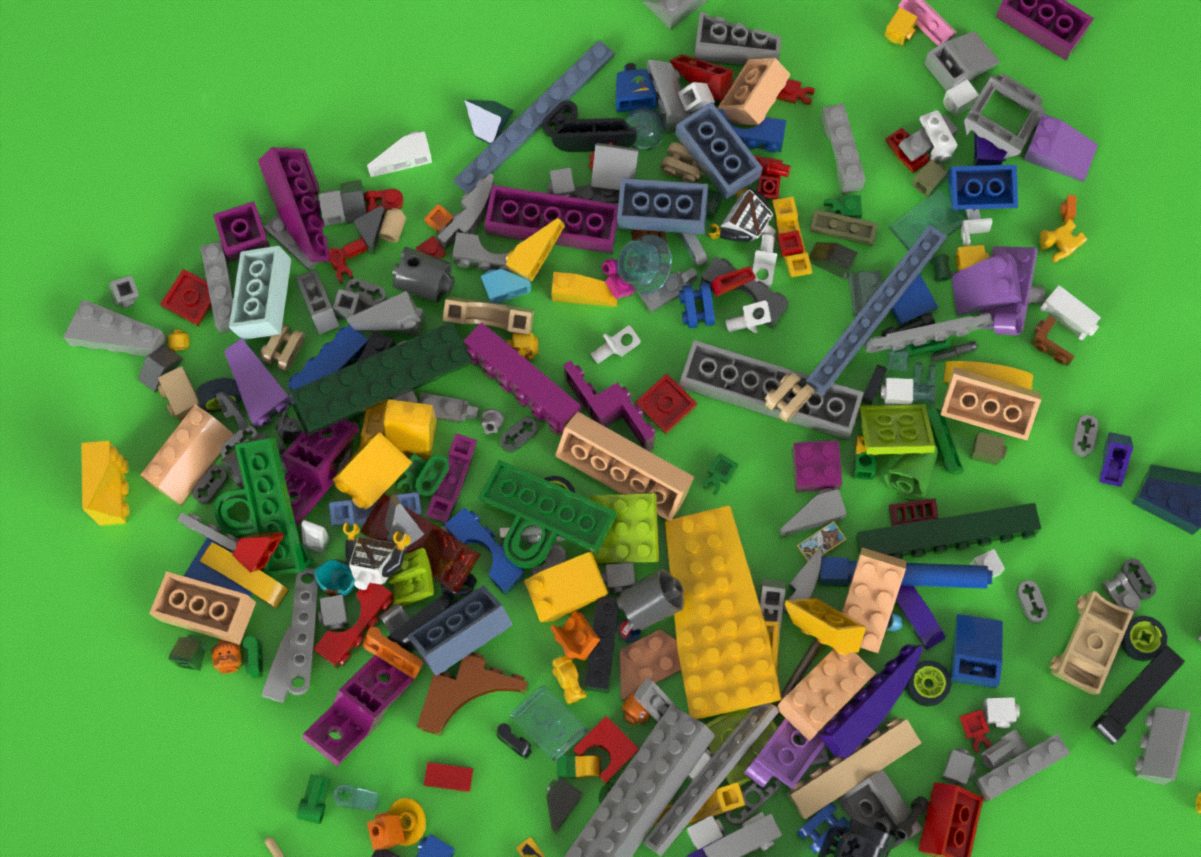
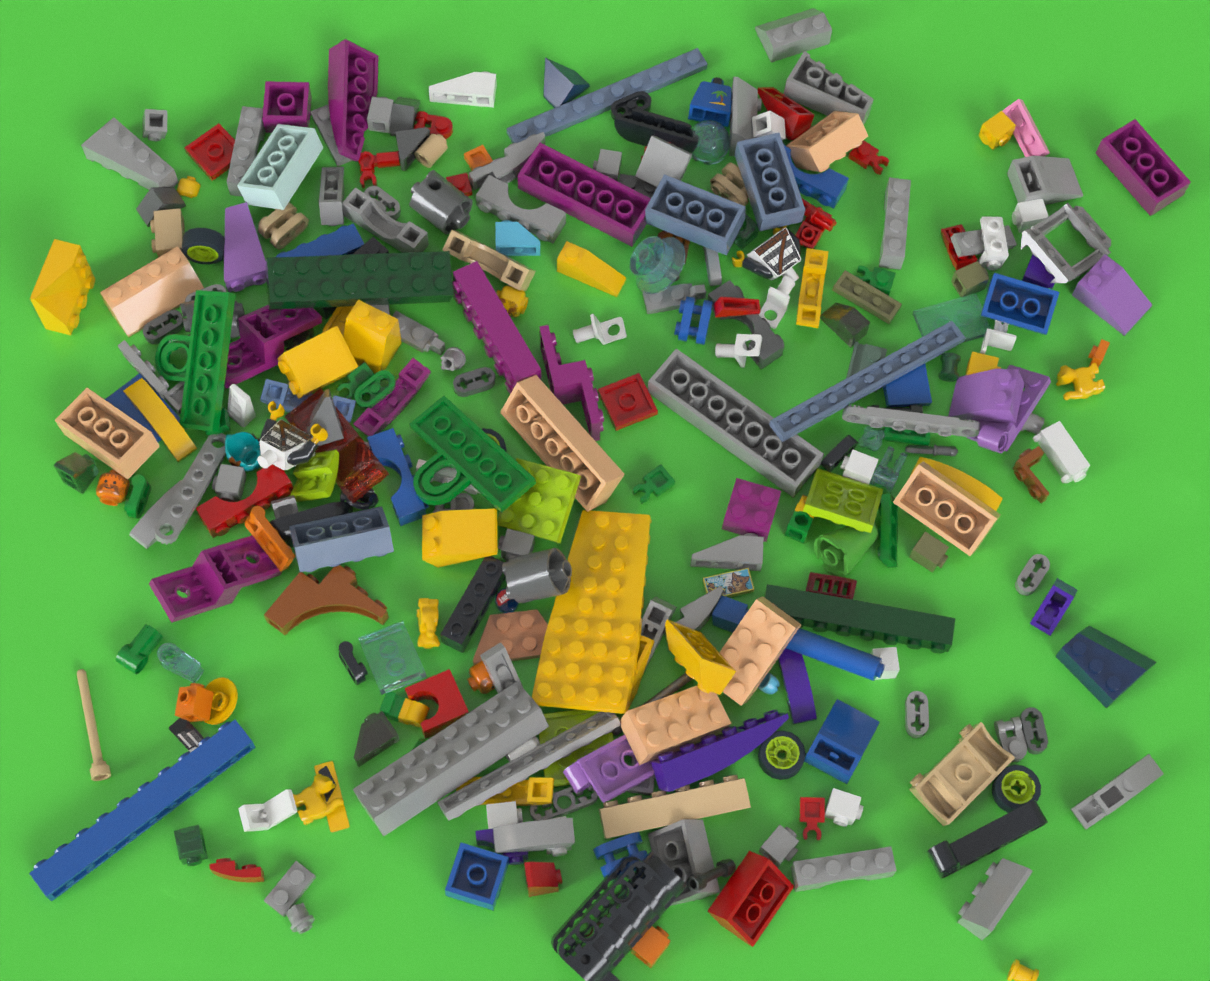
camera: 15 degrees right, 5 degrees down
(231, 408) = (209, 259): dark grey slope -> none
(257, 549) = (179, 397): red slope -> none
(287, 428) = (254, 296): dark grey hinge -> none
(391, 314) = (394, 225): light grey slope -> none
(448, 777) = (276, 675): red tile -> none
(532, 252) = (553, 214): yellow slope -> none
(576, 636) = (451, 586): orange bracket -> none
(615, 283) = (623, 274): dark pink plate -> none
(788, 384) = (750, 420): tan brick -> none
(790, 243) = (807, 293): red plate -> none
(1008, 747) = (834, 844): light grey piece -> none

